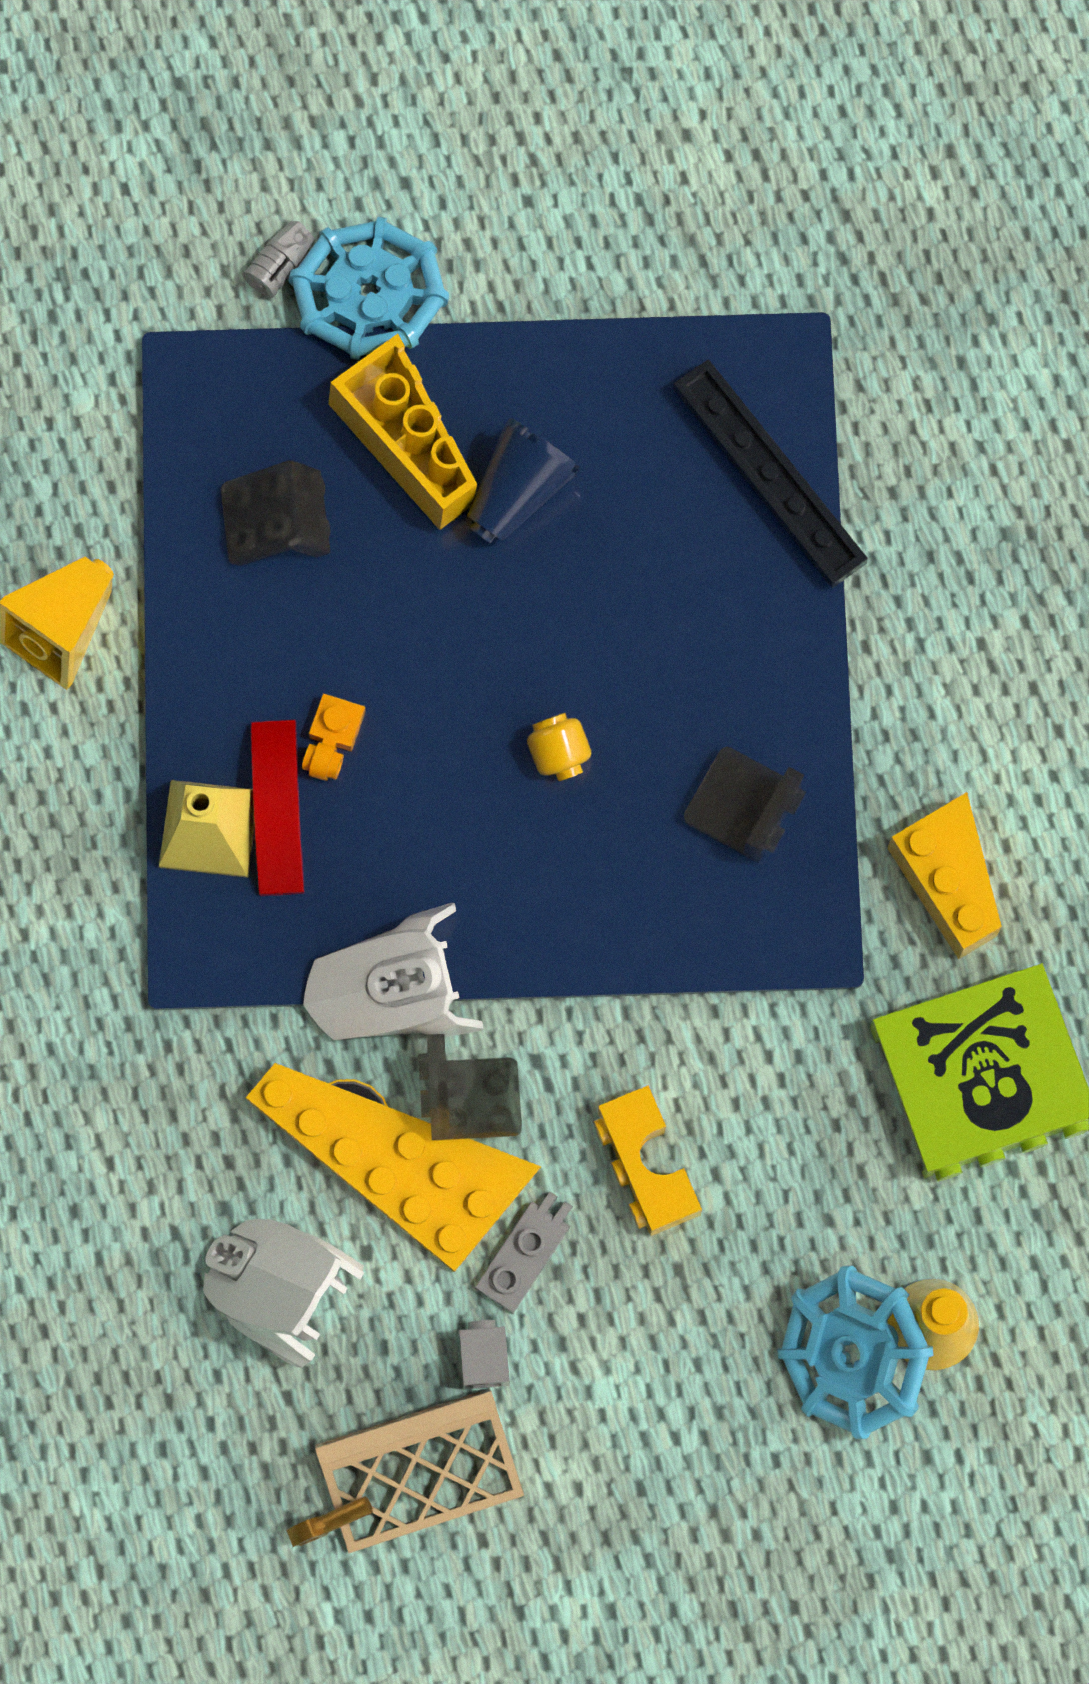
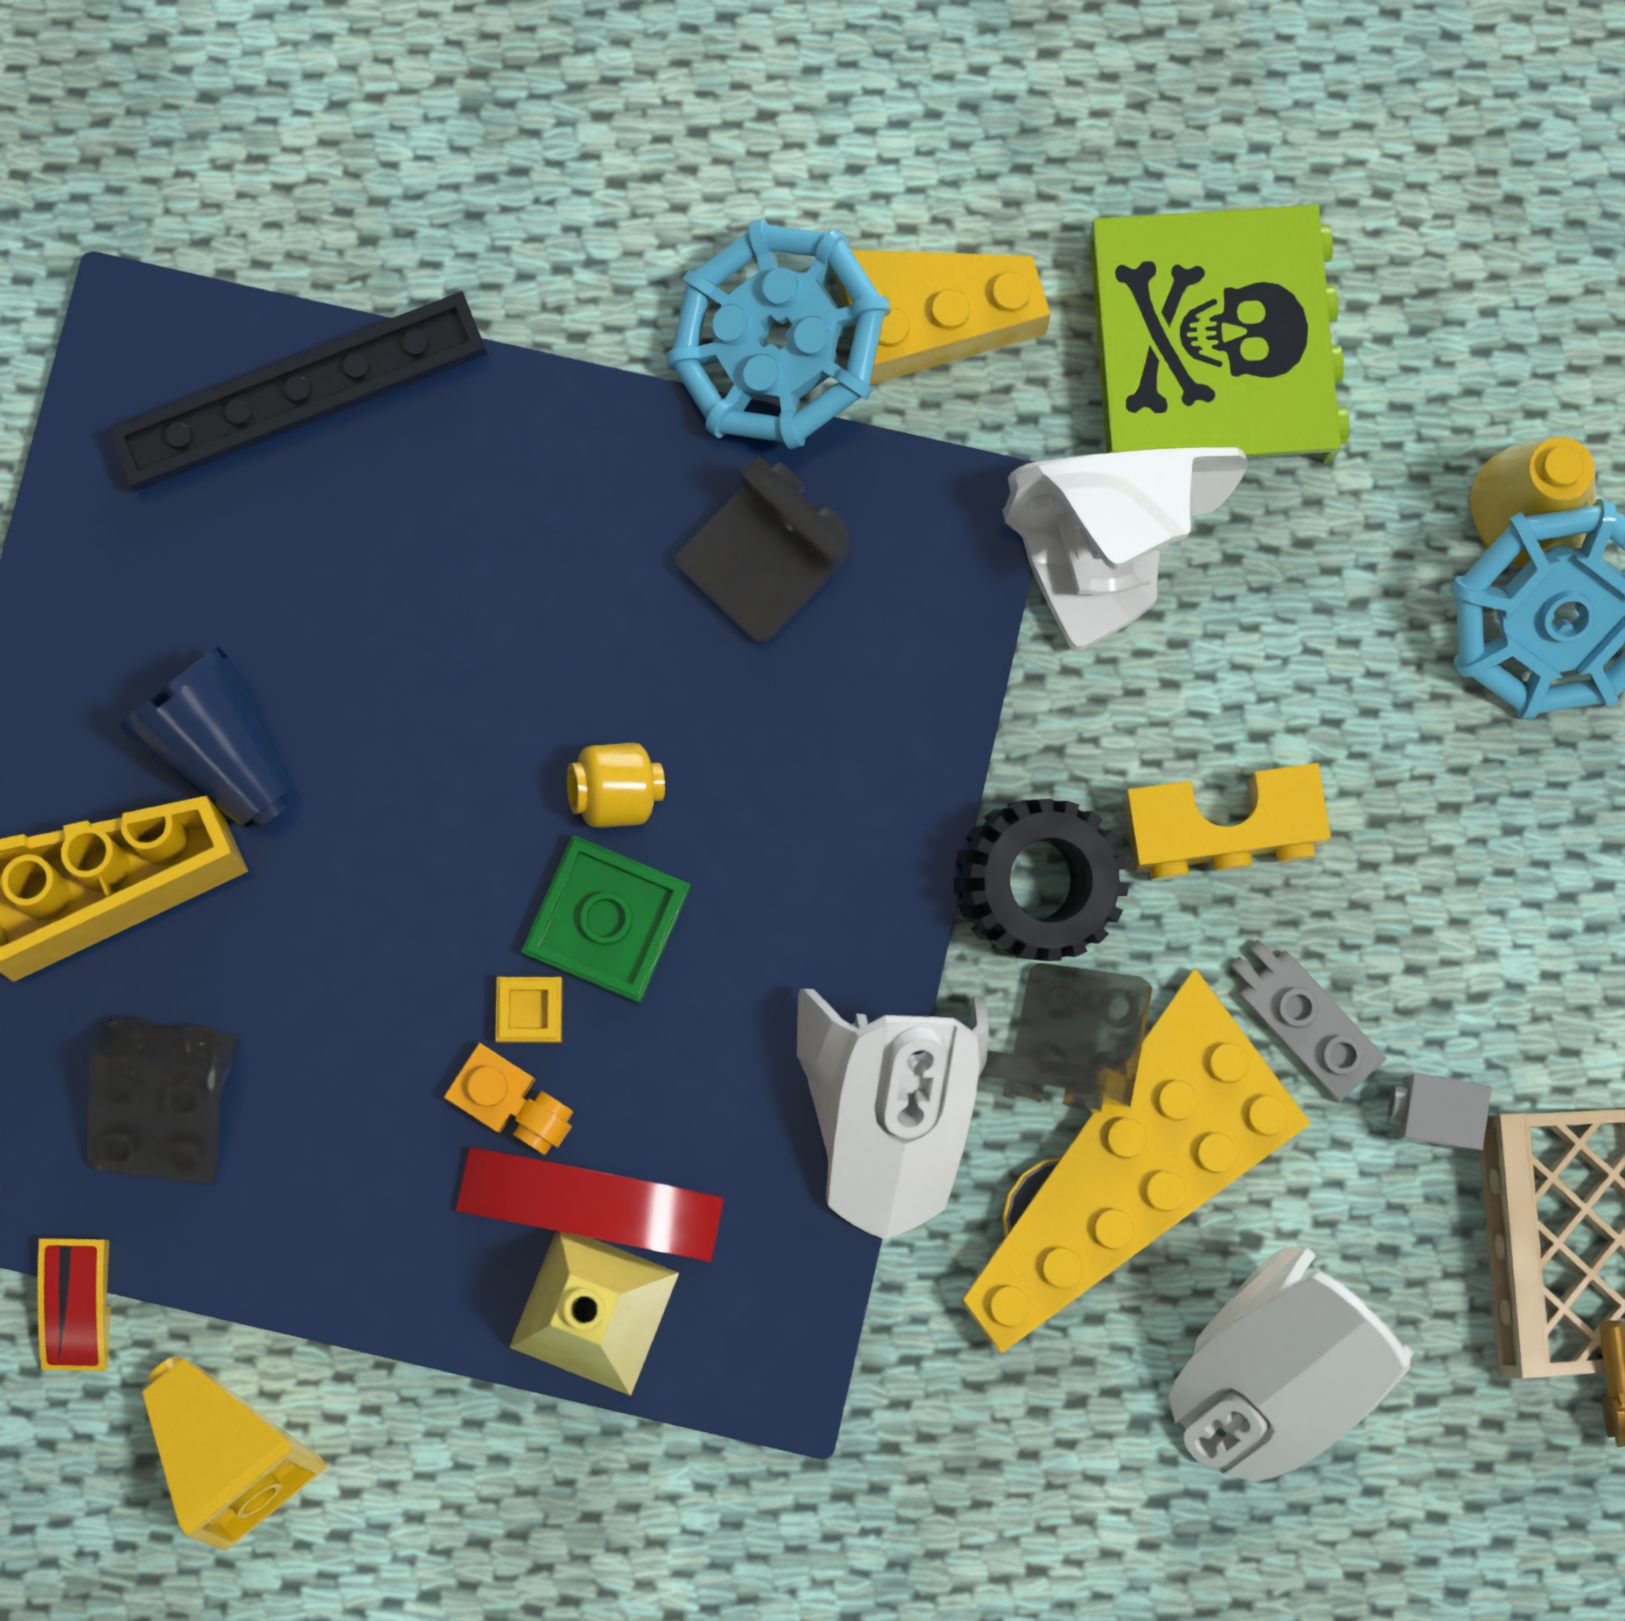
camera: 75 degrees left, 5 degrees up
(130, 500) = (73, 1304): none -> slope
(395, 734) = (529, 1009): none -> yellow tile
(469, 767) = (606, 919): none -> green tile
(531, 1051) = (1092, 888): none -> black tyre
(827, 1028) = (1100, 527): none -> white piece
(891, 749) = (744, 324): none -> medium azure plate

